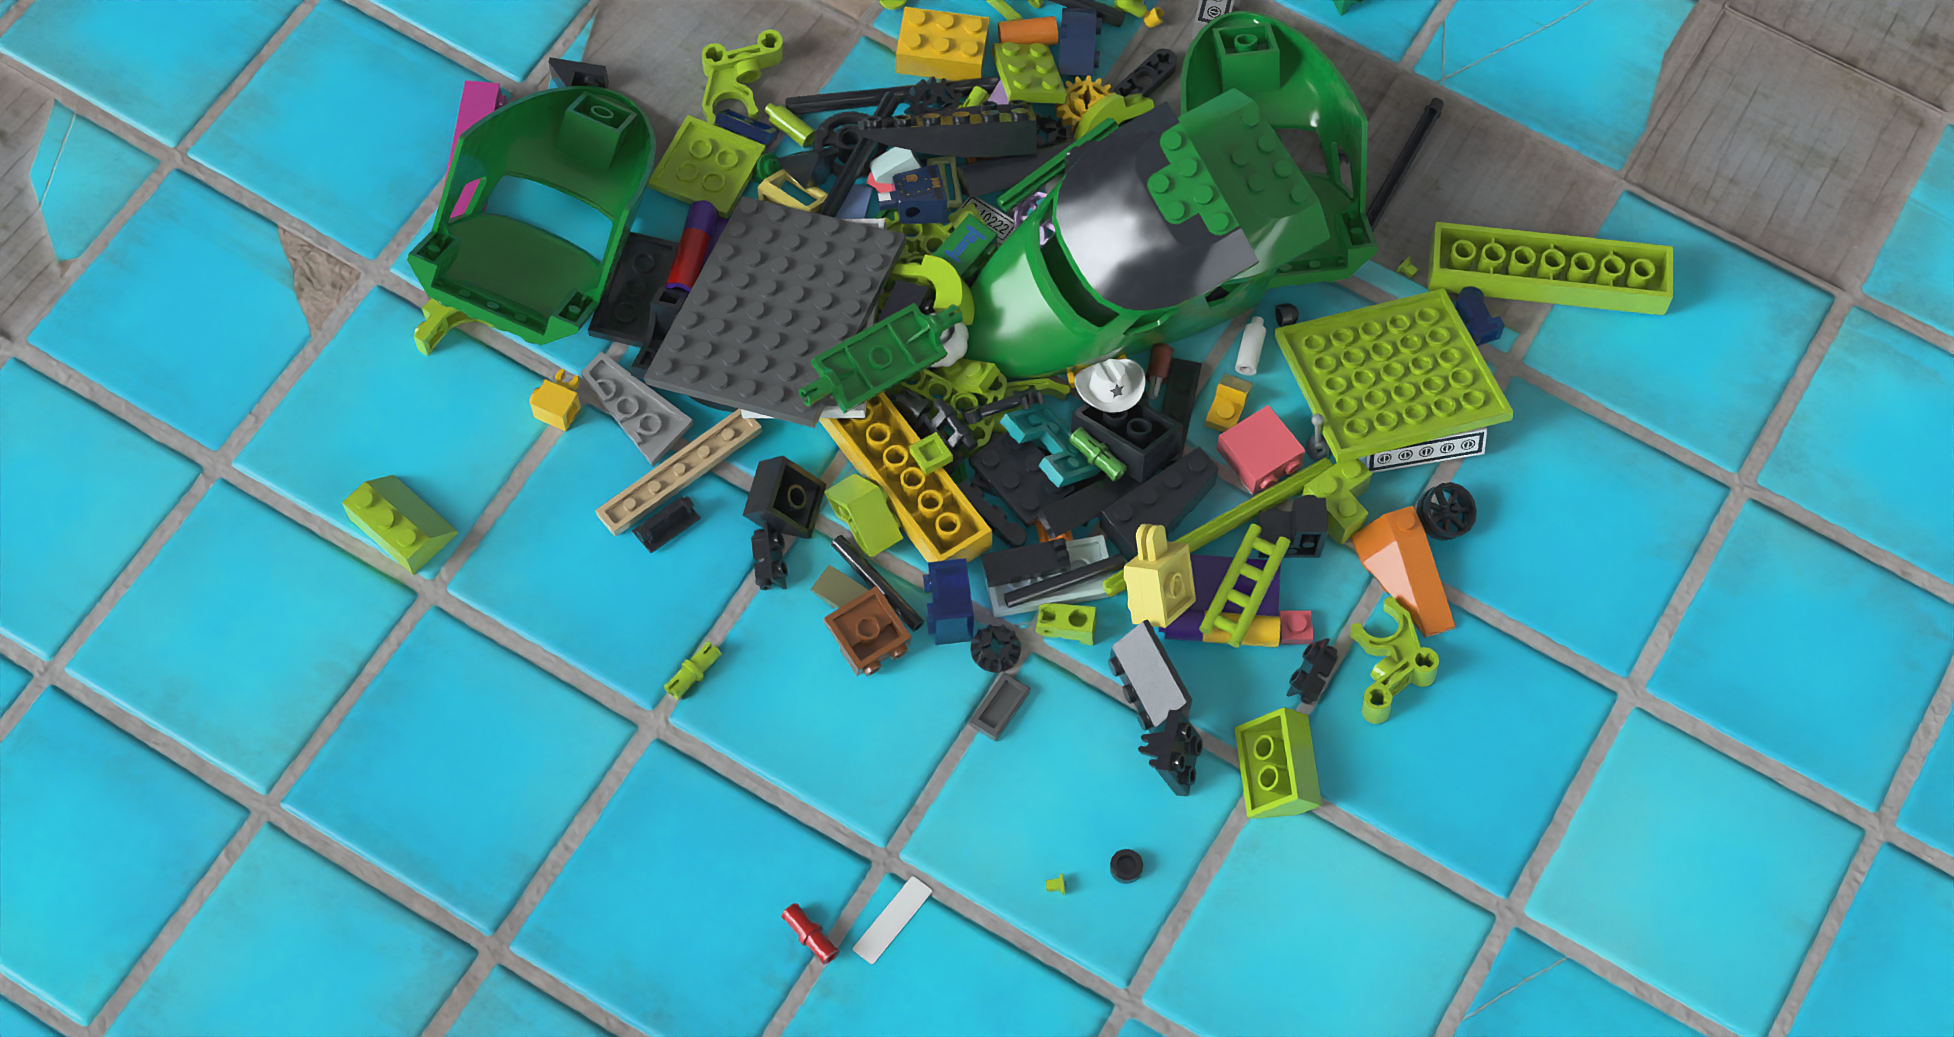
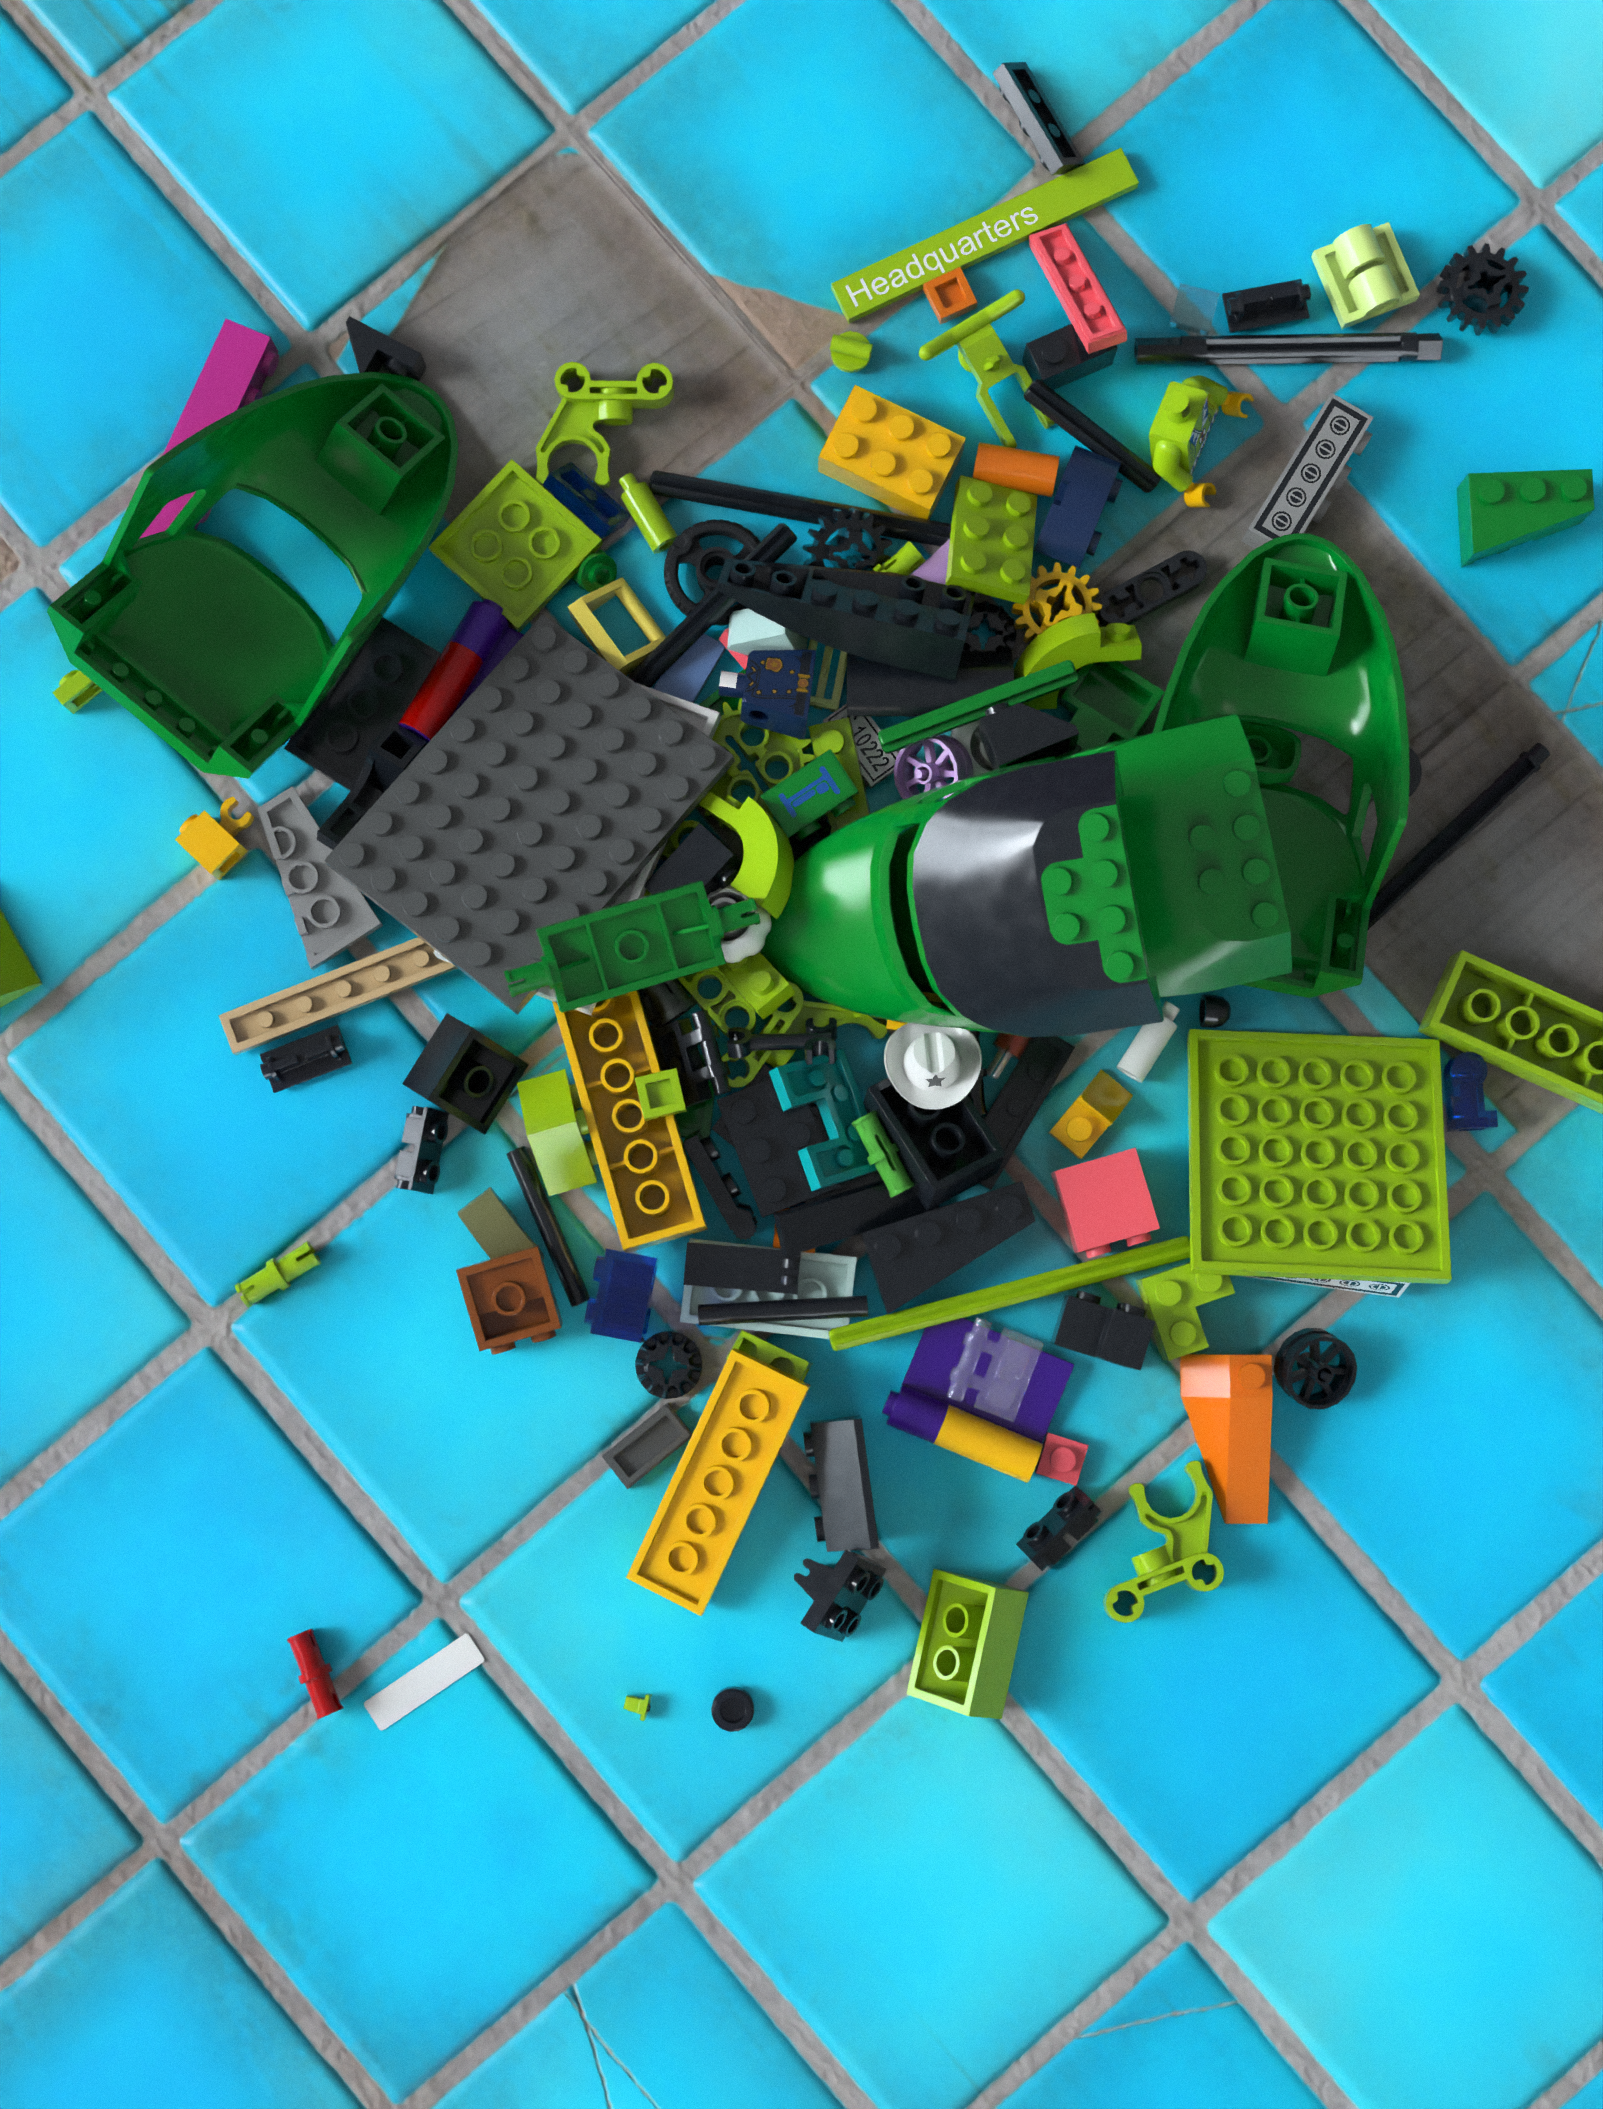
camera: 20 degrees right, 20 degrees up
(810, 166) = (648, 589): black slope -> none
(1060, 706) = (718, 1481): none -> yellow plate
(1159, 578) = (896, 1366): light yellow brick -> none
(1208, 563) = (1006, 1375): none -> clear plate
(1250, 603) = (1012, 1370): lime bar -> none
(1317, 441) = (1180, 1213): sand blue hinge -> none
(1407, 268) = (1404, 988): lime piece -> none

